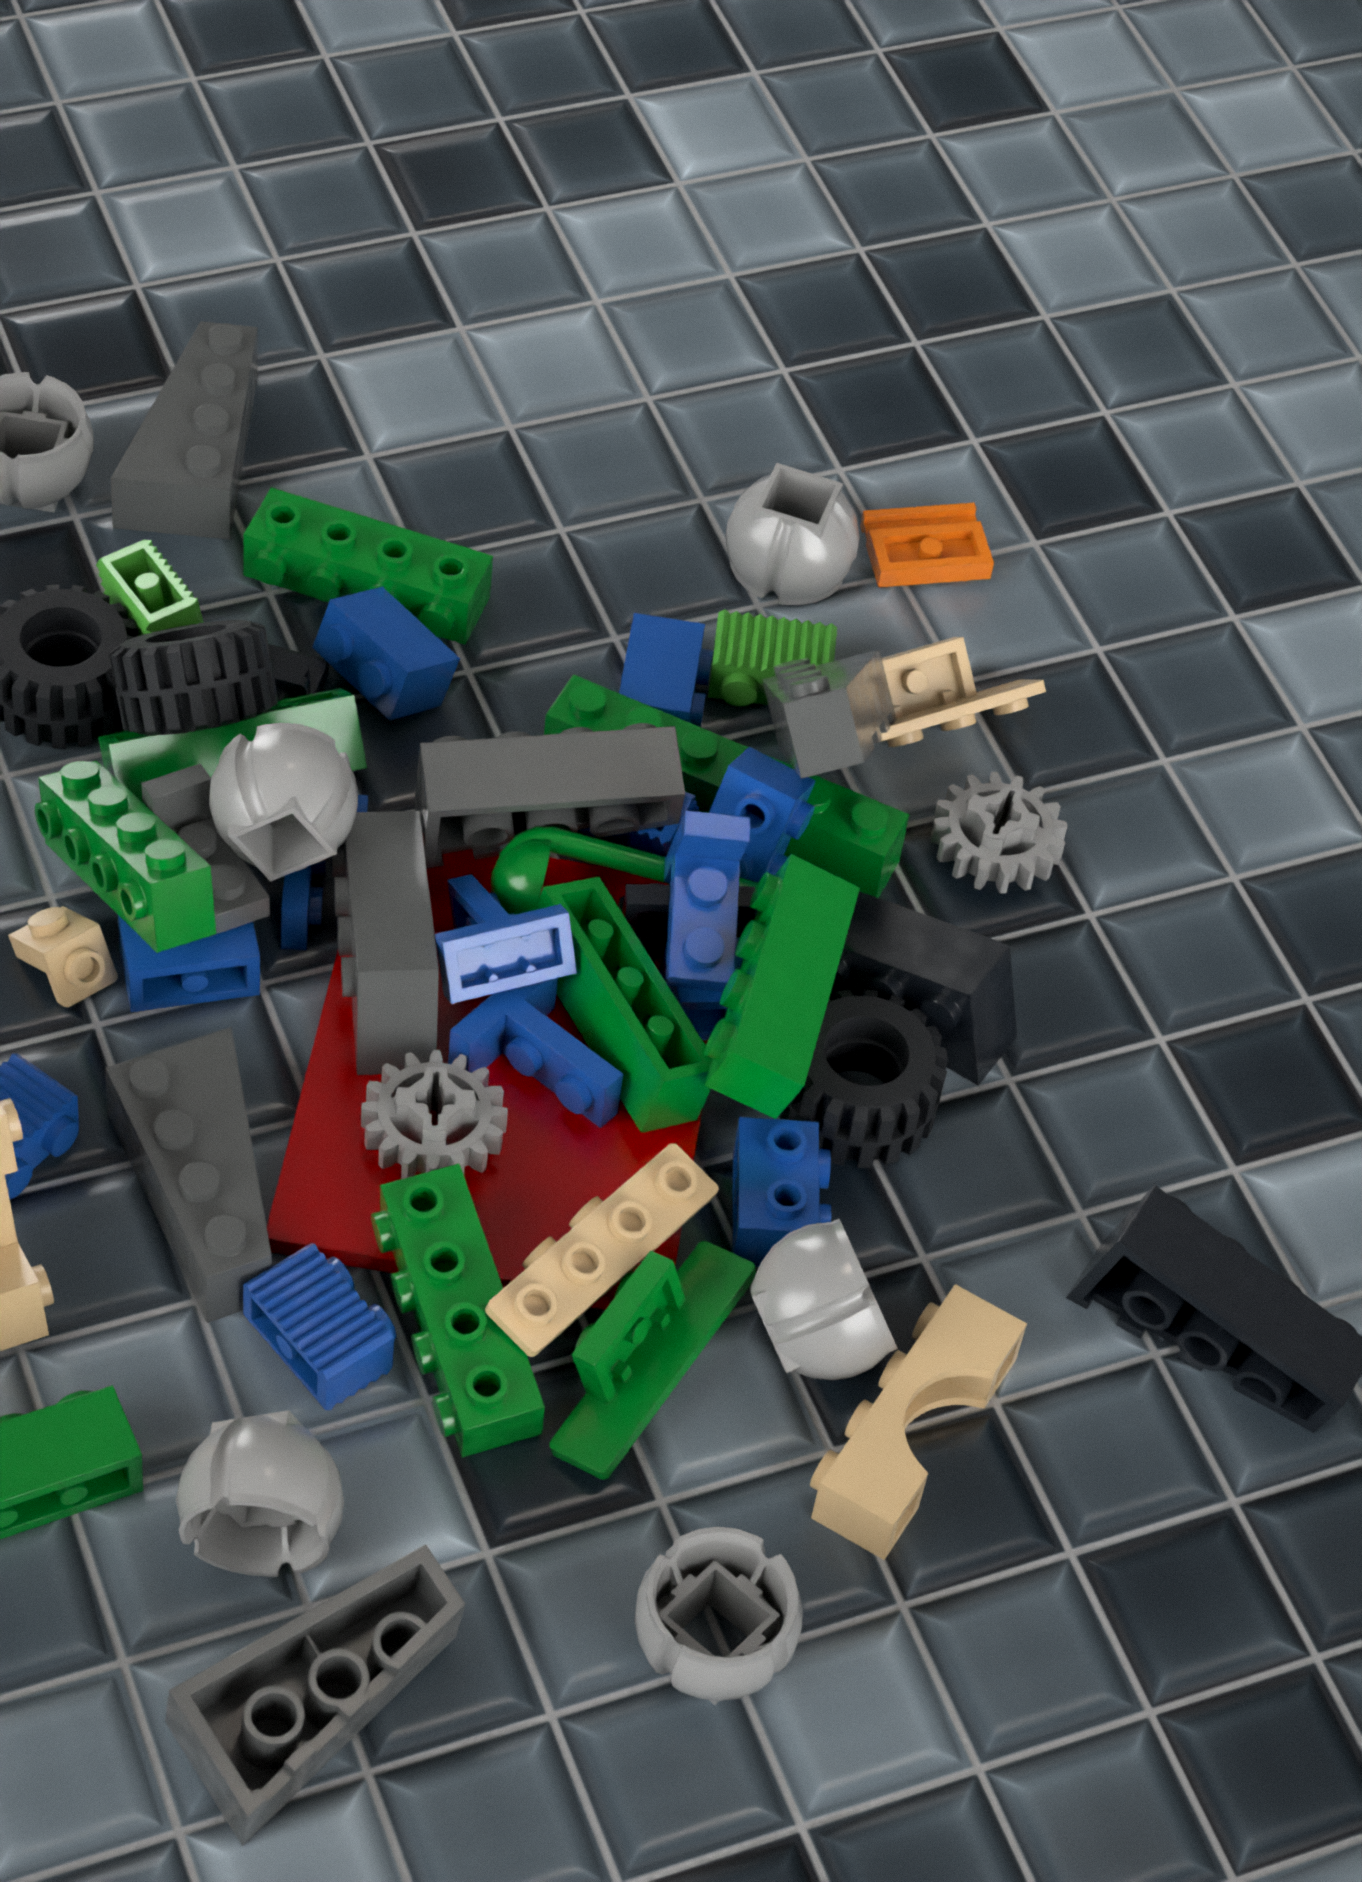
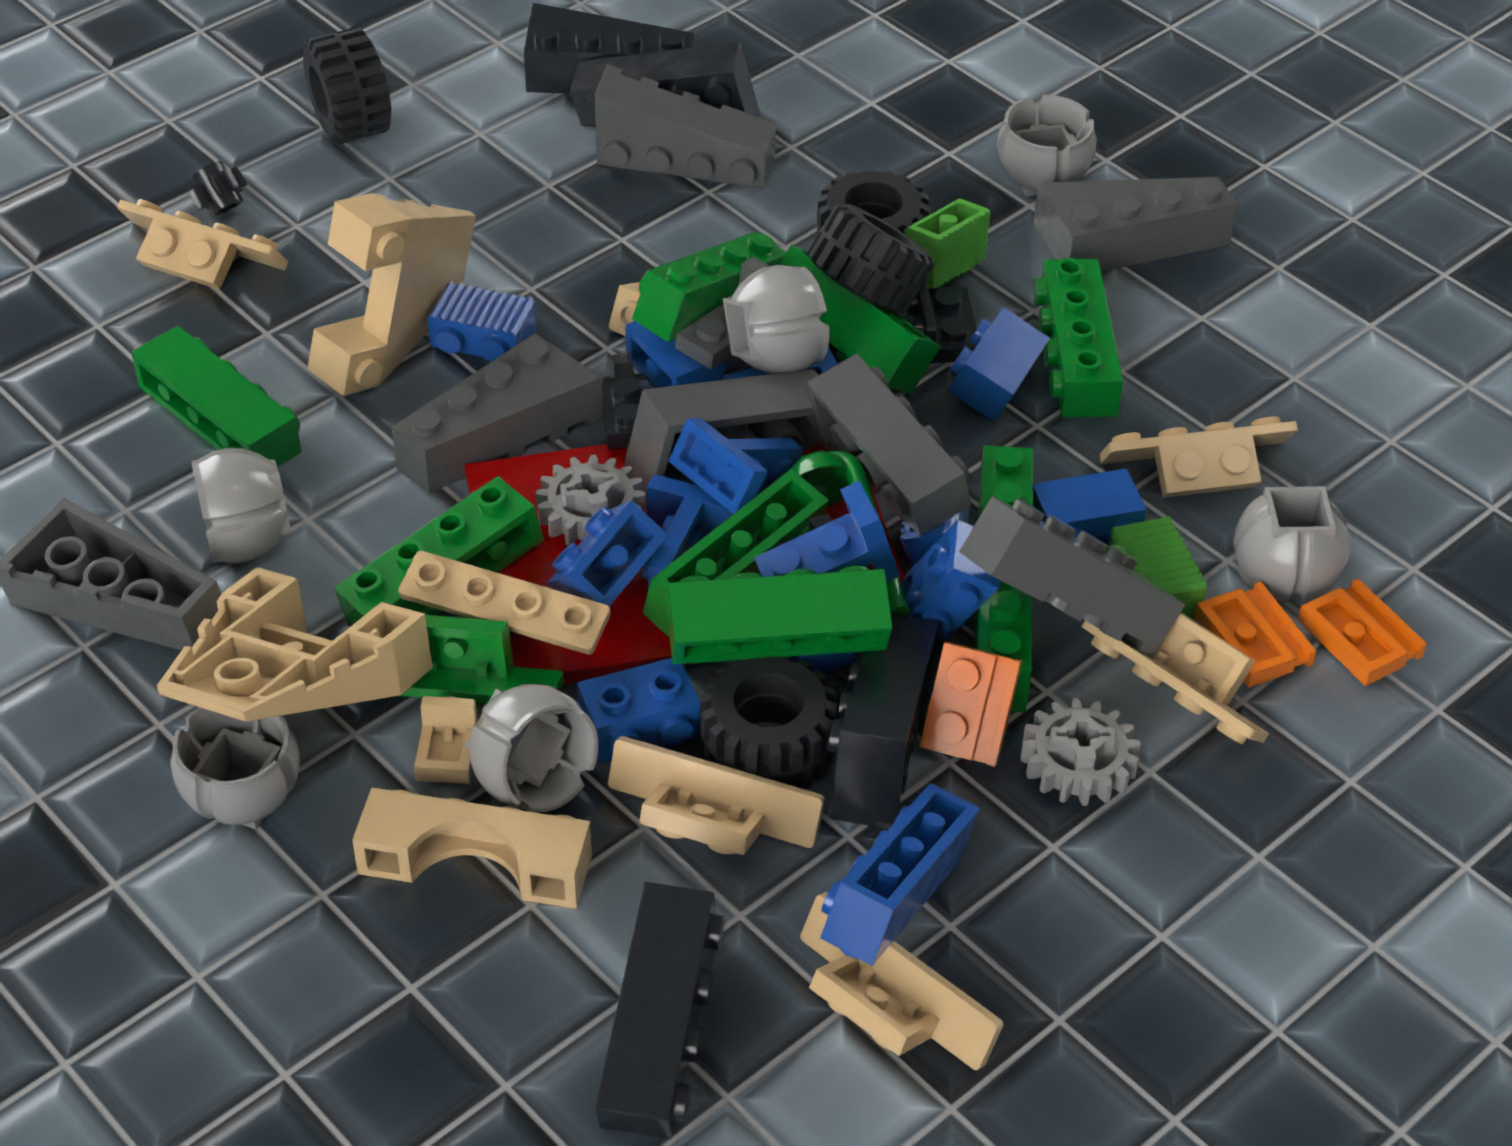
camera: 75 degrees right, 5 degrees down
(264, 1032) = (621, 400): none -> black hinge
(320, 1325) = (400, 504): blue brick -> none
(575, 1125) = (610, 554): none -> blue brick
(616, 549) = (1202, 461): none -> tan bracket
(616, 1531) = (263, 664): none -> tan wedge
(748, 1398) = (442, 740): none -> tan bracket
(888, 619) = (1259, 629): none -> orange plate
(914, 871) = (970, 704): none -> orange plate
(943, 1174) = (712, 800): none -> tan bracket
(1155, 1027) = (897, 874): none -> blue brick
(1246, 1111) = (900, 999): none -> tan bracket

